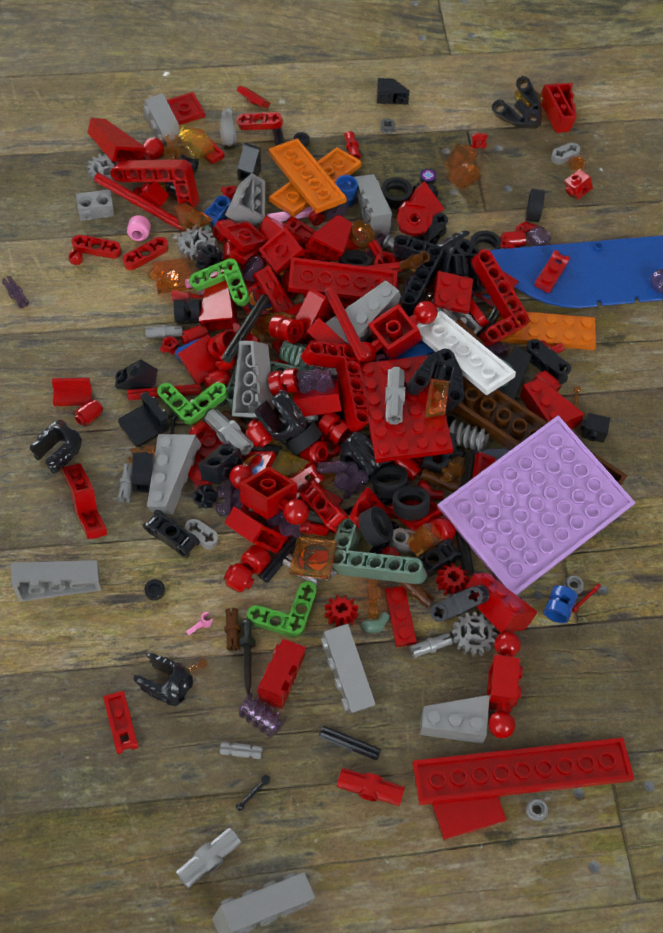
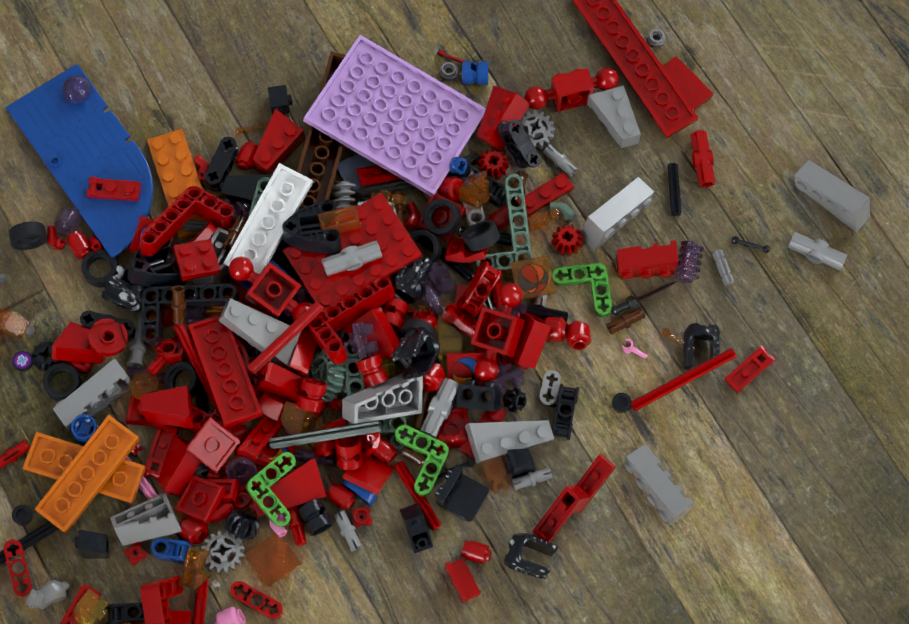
camera: 110 degrees left, 10 degrees up
(139, 643) = (683, 379): none -> red axle
(461, 534) = (458, 165): none -> blue bush

